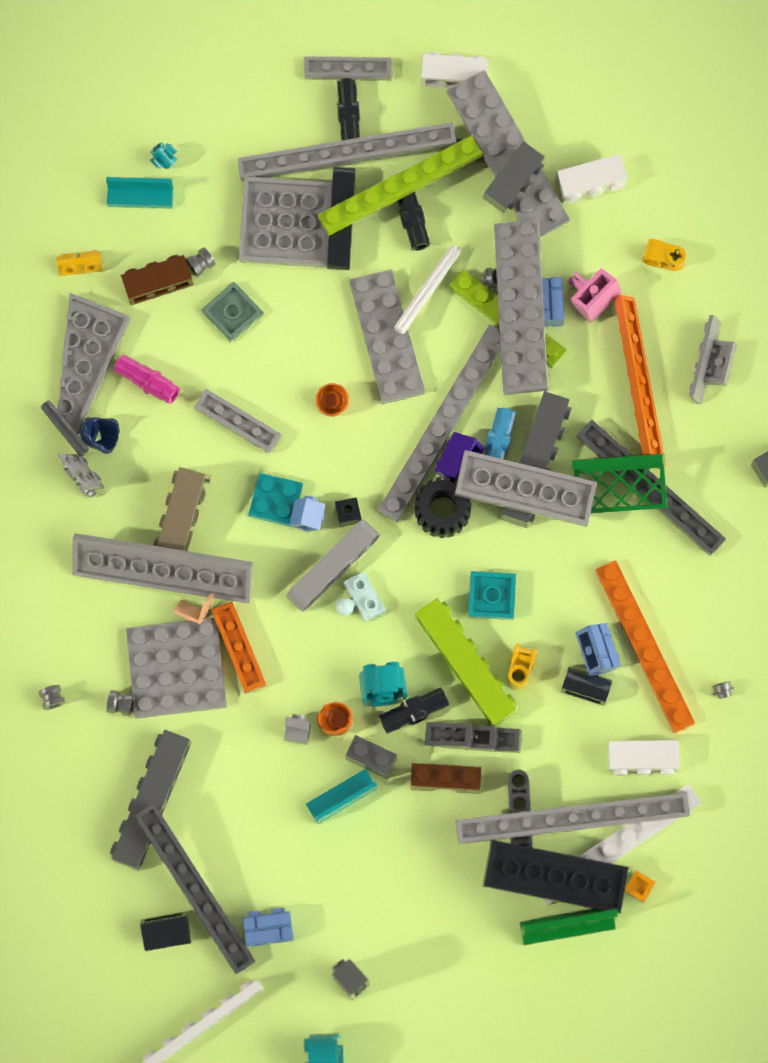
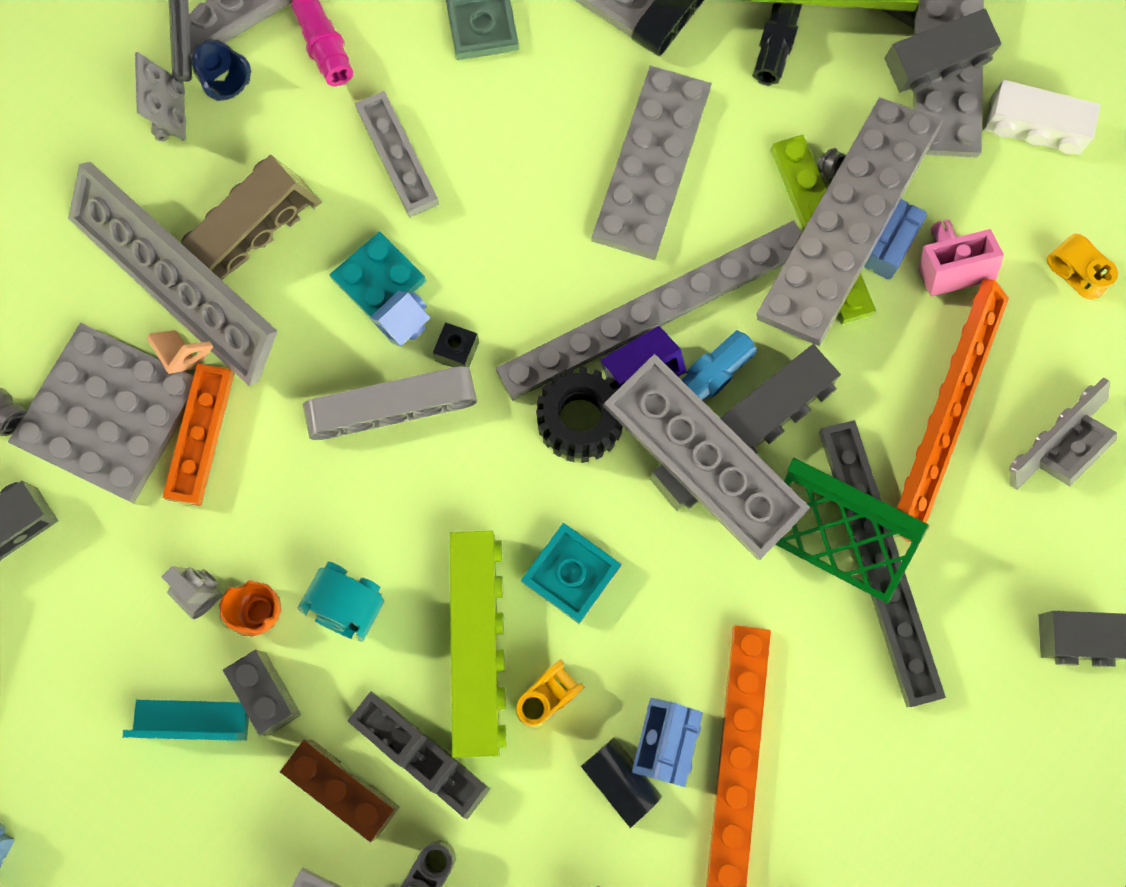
camera: 30 degrees right, 0 degrees up
(332, 399) = (530, 195): orange hair -> none
(362, 597) = (400, 470): light aqua plate -> none
(414, 710) = (363, 664): black piece -> none
(427, 289) = (740, 131): white axle -> none

